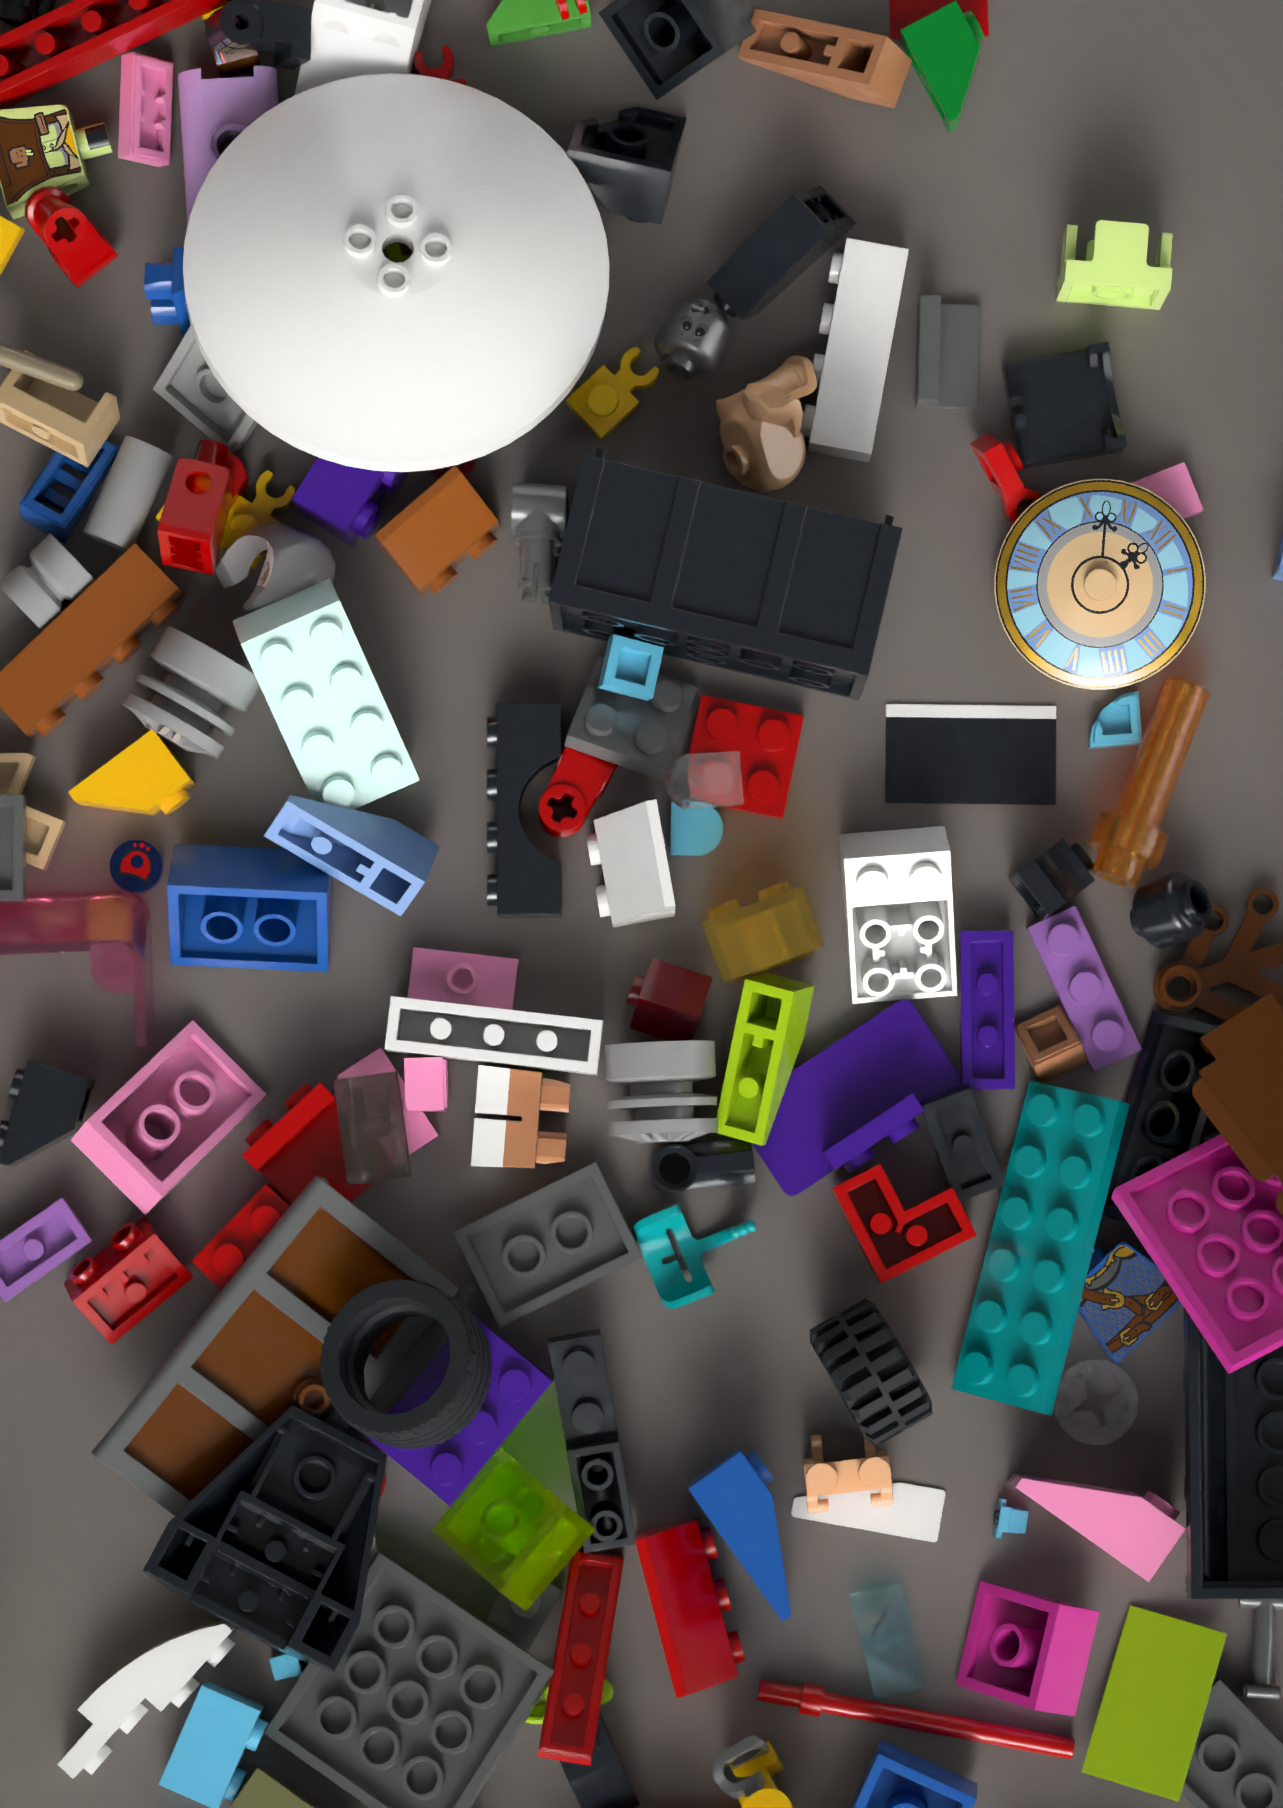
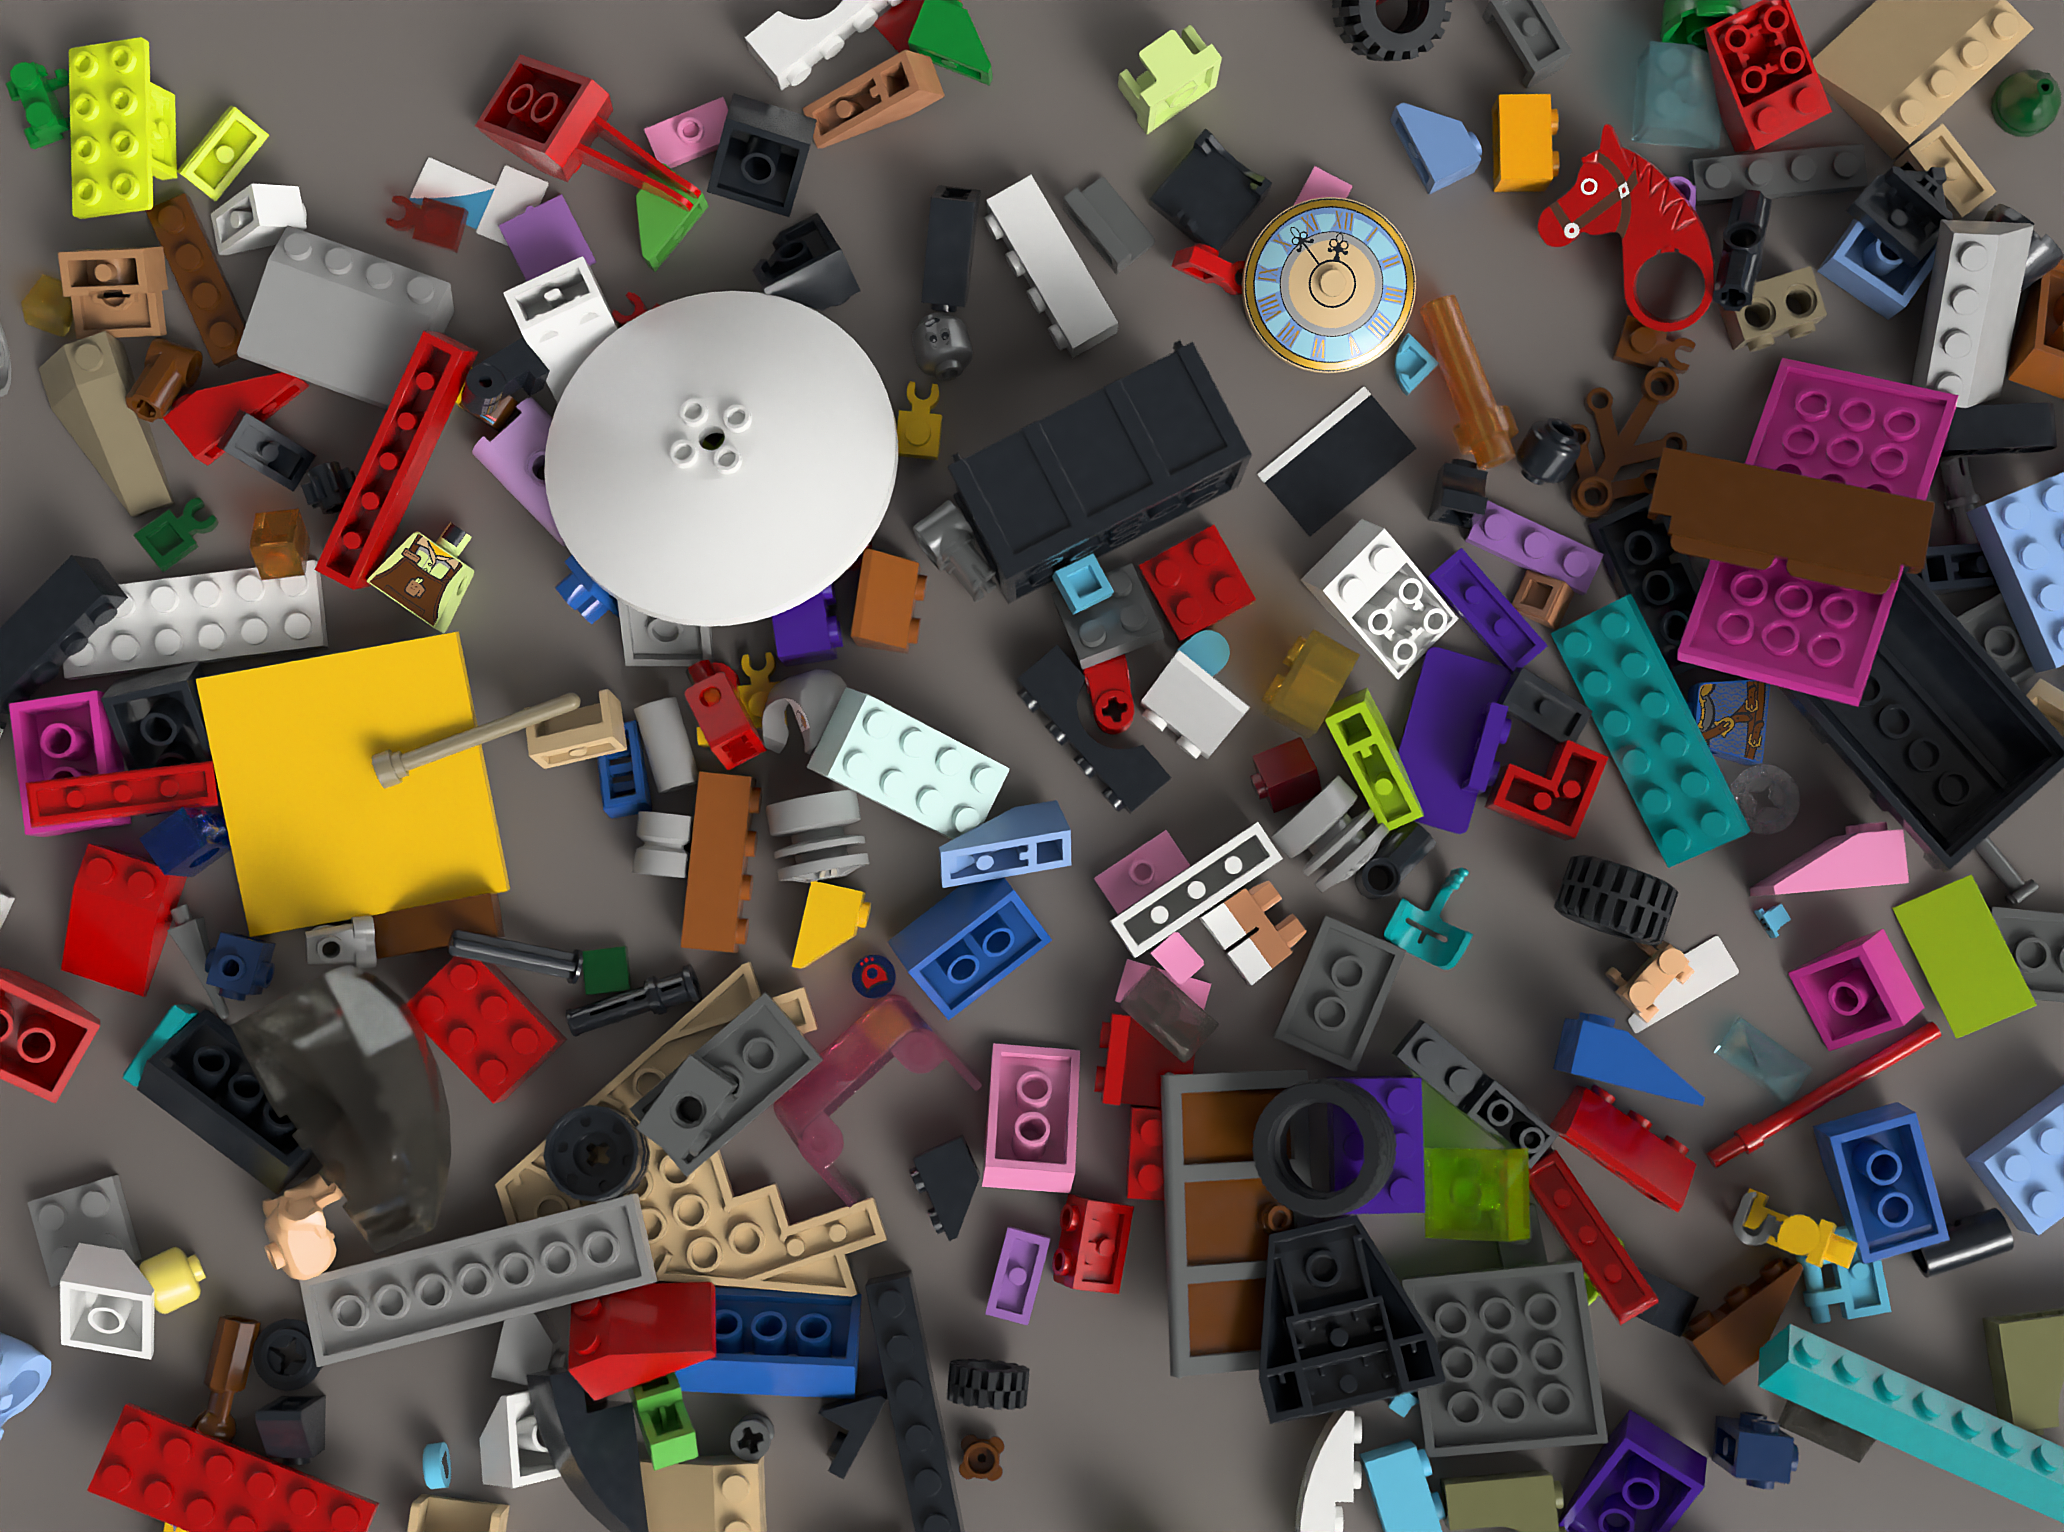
camera: 40 degrees left, 0 degrees up
(68, 234) = (488, 612): red piece -> none
(145, 109) = (470, 492): bright pink plate -> none
(705, 780) = (1190, 616): clear plate -> none
(764, 427) = (1036, 362): light nougat head -> none

